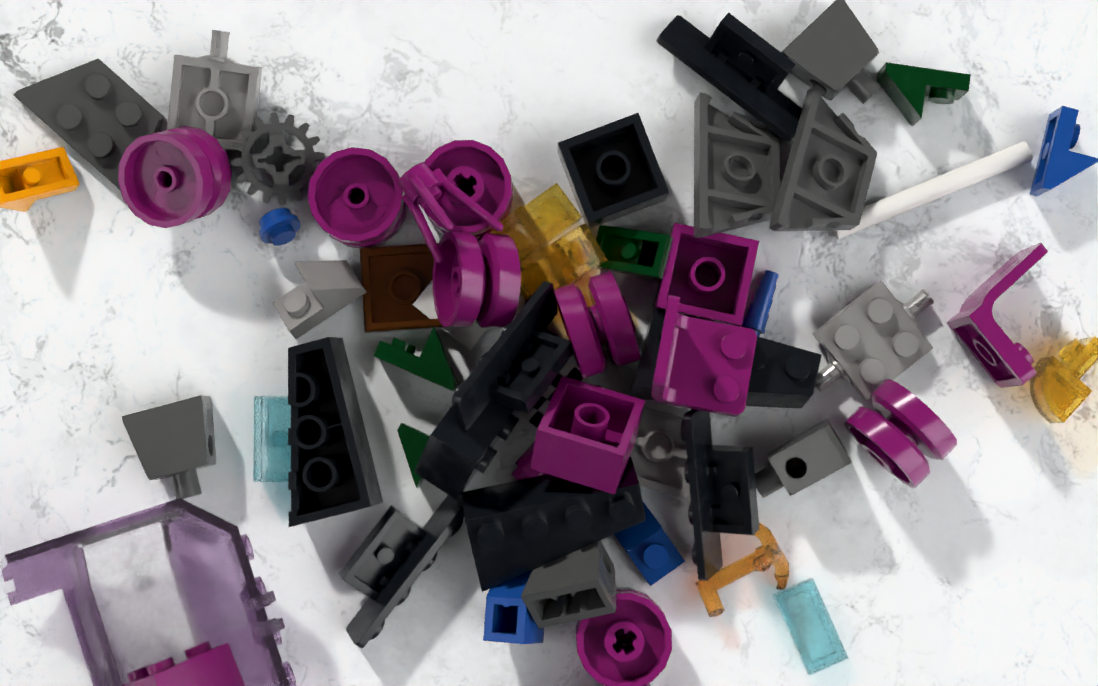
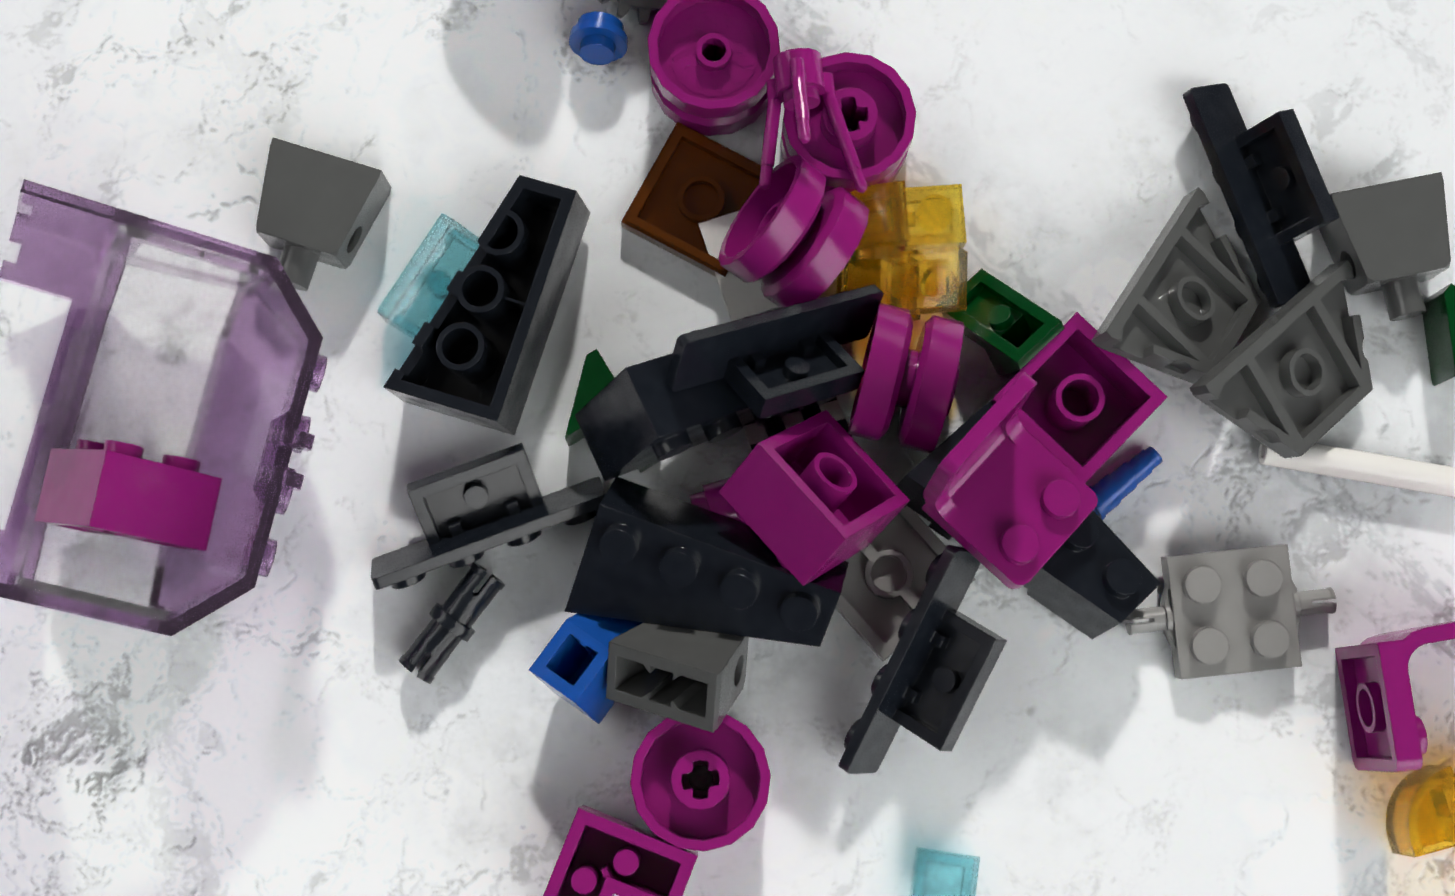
camera: 25 degrees right, 5 degrees down
(325, 291) = (605, 146): light grey slope -> none
(418, 637) = (451, 622): none -> black pin
(431, 364) = (672, 306): dark green slope -> none
(612, 171) = (1037, 211): black brick -> none
(650, 548) = (801, 689): blue slope -> none
(758, 561) = (935, 789): clear orange piece -> none
(816, 447) = (1087, 699): dark grey torso -> none
(901, 433) = (1202, 741): magenta wheel -> none

